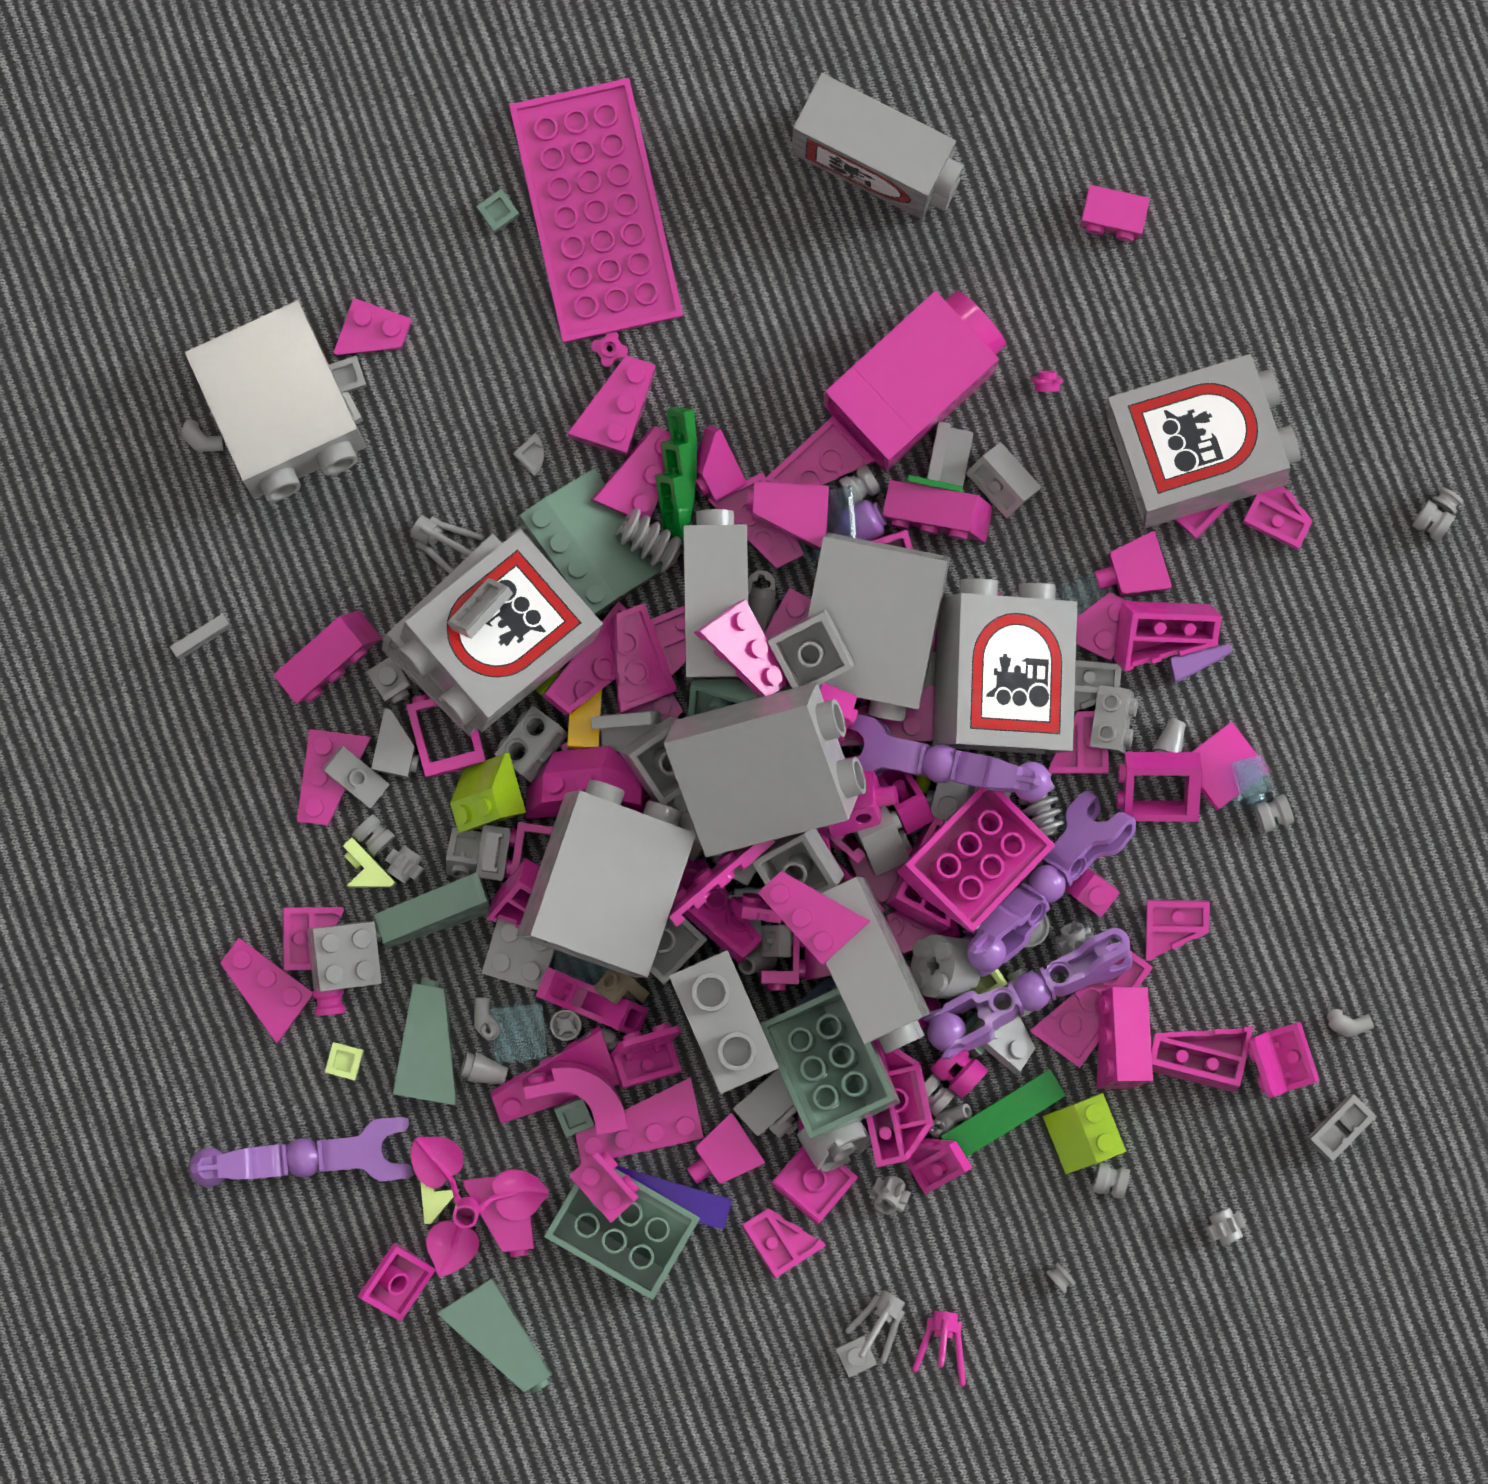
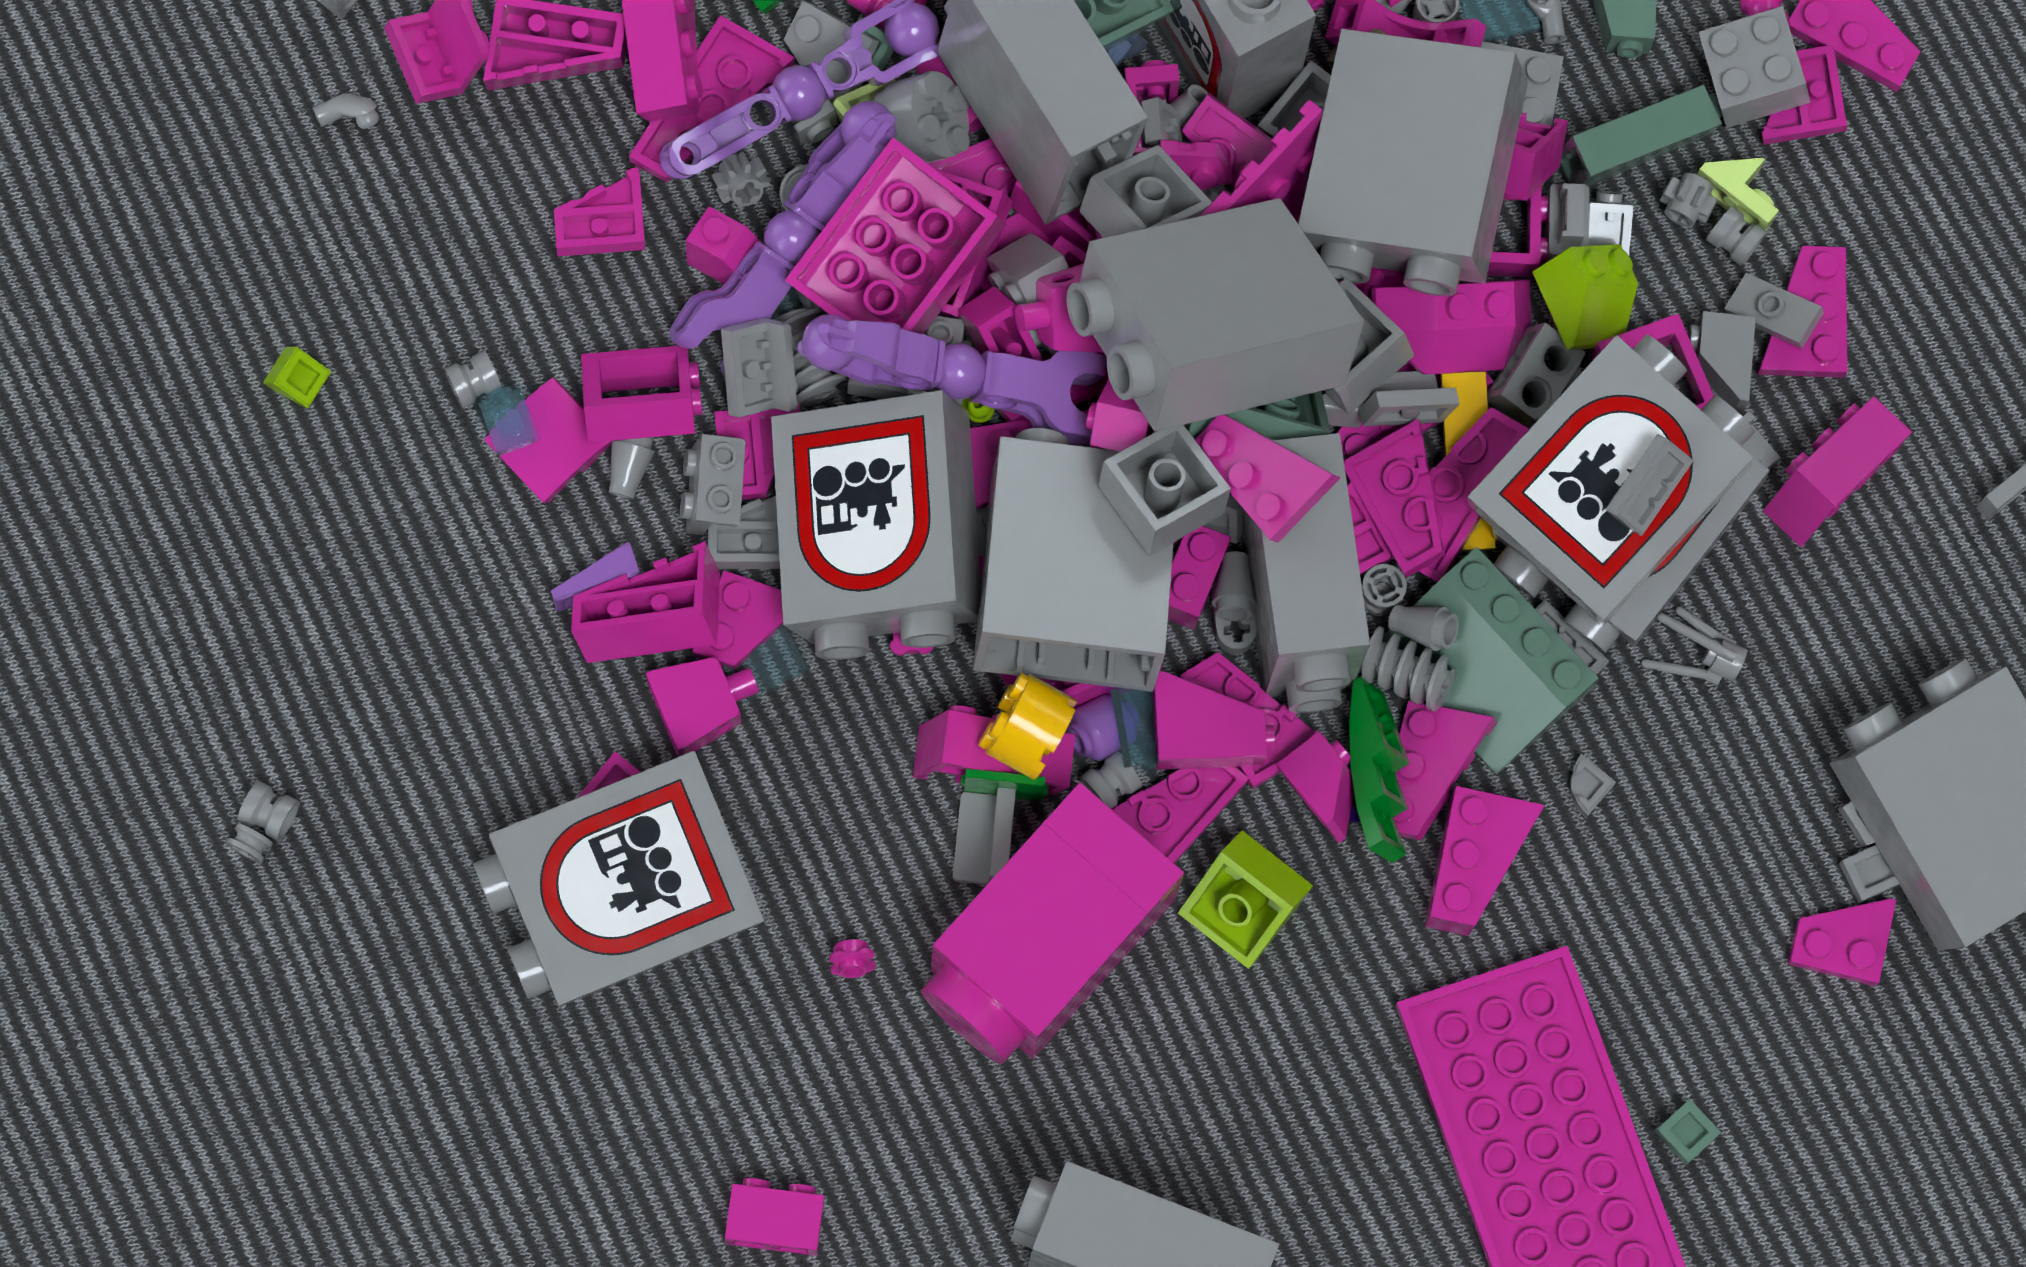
camera: 170 degrees right, 10 degrees down
(600, 347) = (1498, 933): dark pink plate -> none
(632, 565) = (1426, 625): none -> light grey cone
(659, 604) = (1379, 598): none -> light grey wheel
(776, 396) = (1245, 899): none -> lime slope
(813, 917) = (1124, 94): dark pink wing -> none
(917, 510) = (1029, 726): none -> yellow brick
(1003, 479) = (901, 813): light grey panel -> none
(1077, 793) = (759, 367): none -> light grey bracket
(1279, 517) = (494, 794): dark pink wing -> none
(1396, 831) = (297, 376): none -> lime slope

